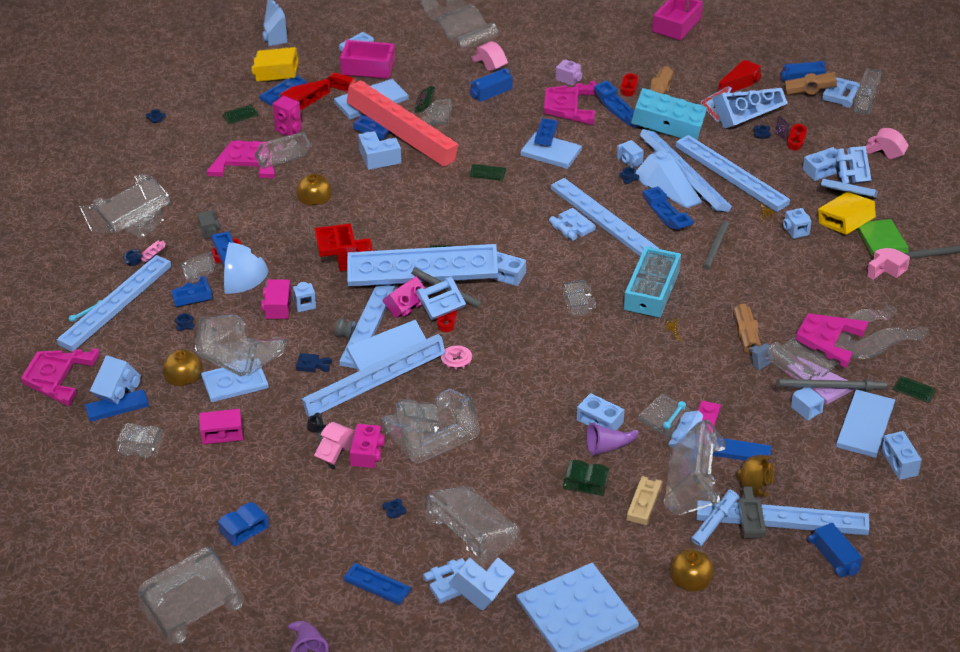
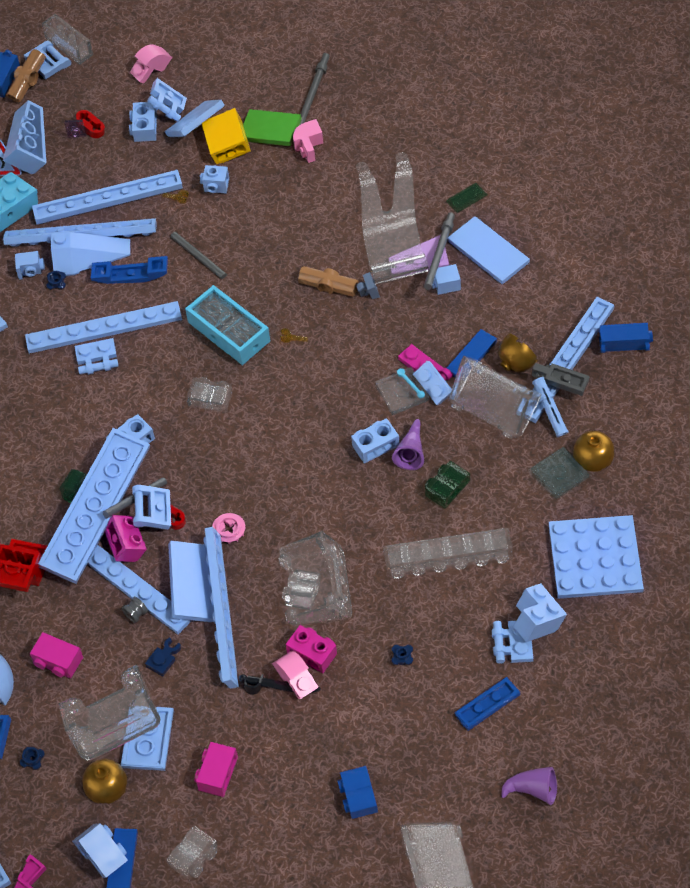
camera: 60 degrees left, 15 degrees up
(302, 293) = (67, 629): light blue brick -> none
(472, 519) = (457, 594): clear windscreen -> none
(514, 502) = (448, 552): none -> clear brick
(644, 500) = (495, 451): tan plate -> none
(652, 555) = (560, 472): none -> clear light blue tile
(762, 131) = (62, 146): dark blue plate -> none
(824, 331) = (380, 228): dark pink wing -> none
(901, 455) = (544, 242): light blue brick -> none

